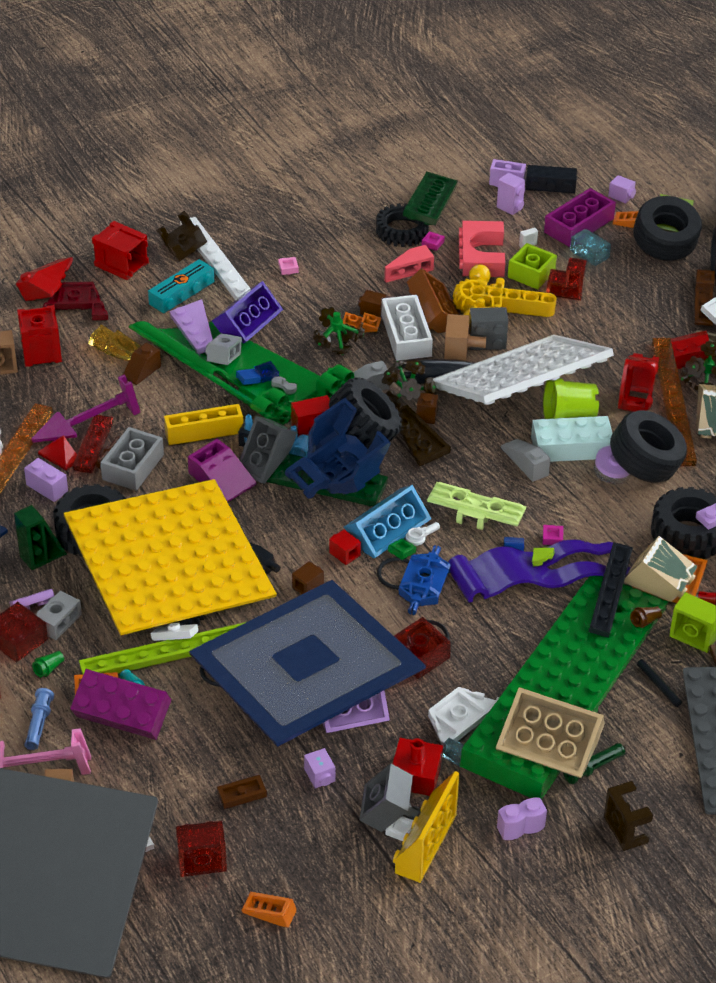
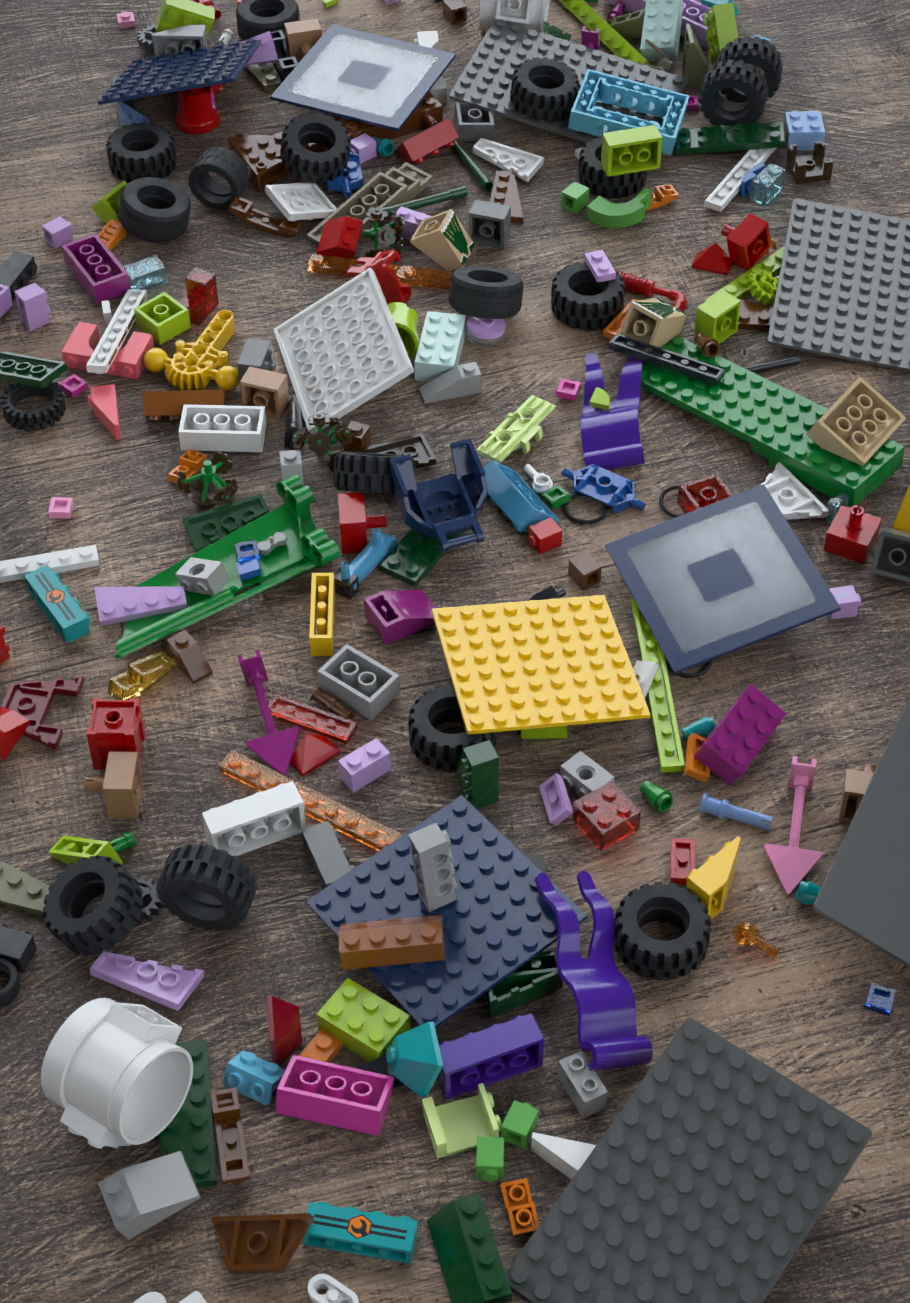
camera: 75 degrees left, 5 degrees up
(241, 791) = (861, 664): reddish brown plate -> none
(248, 313) = (139, 551): dark purple slope -> none
(266, 448) = (390, 562): dark grey slope -> none
(300, 351) = (219, 522): none -> dark green wing
(371, 303) = (165, 450): reddish brown brick -> none
(495, 242) = (116, 332): none -> white plate
(517, 543) = (570, 419): blue slope -> none

